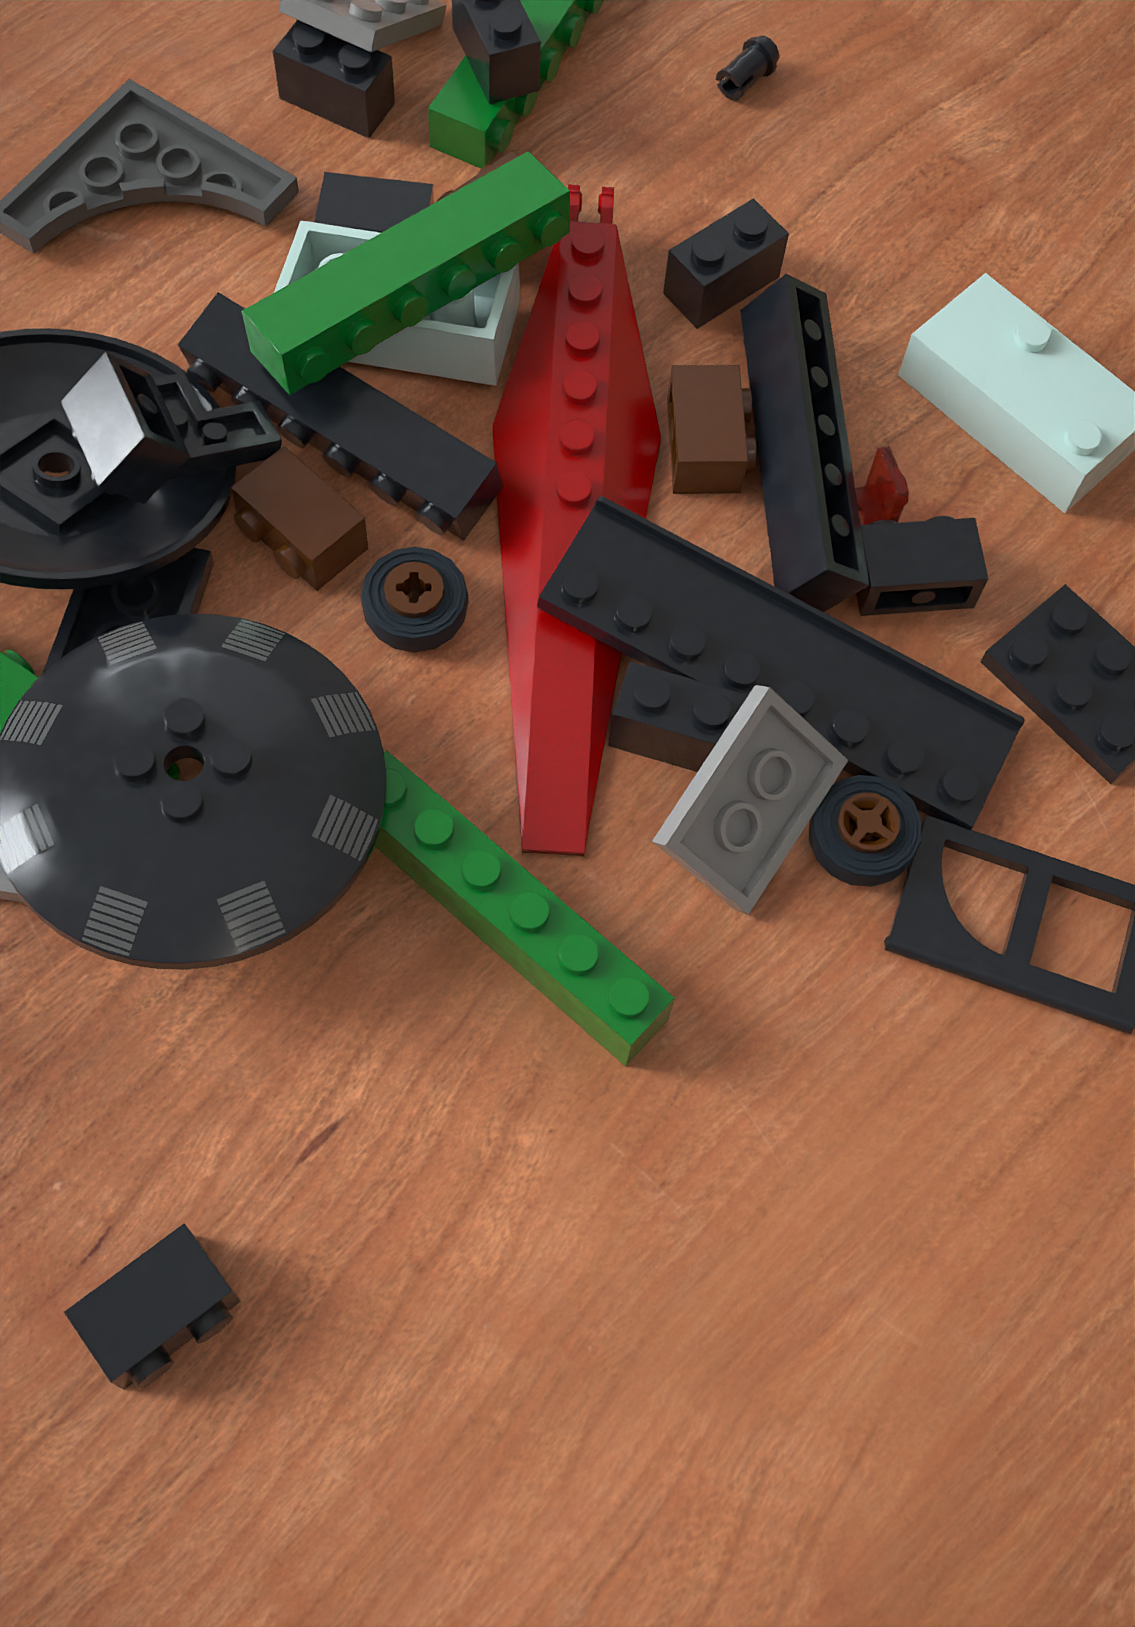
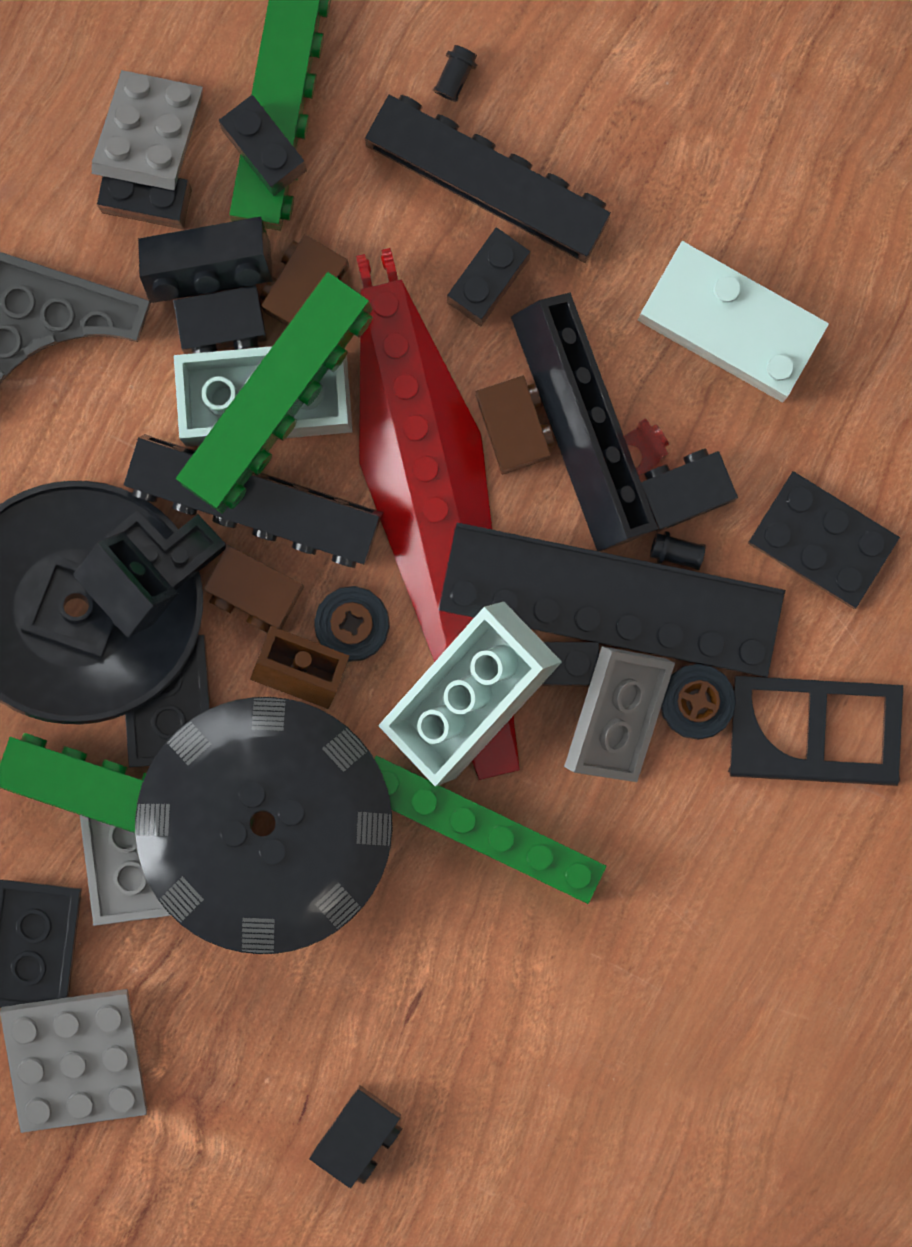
camera: 10 degrees left, 20 degrees up
(325, 612) = (299, 667): none -> reddish brown brick
(381, 145) = (205, 260): none -> black brick
(546, 701) = (469, 693): none -> light aqua brick
(746, 159) = (488, 178): none -> black brick
(886, 630) = (677, 551): none -> black pin

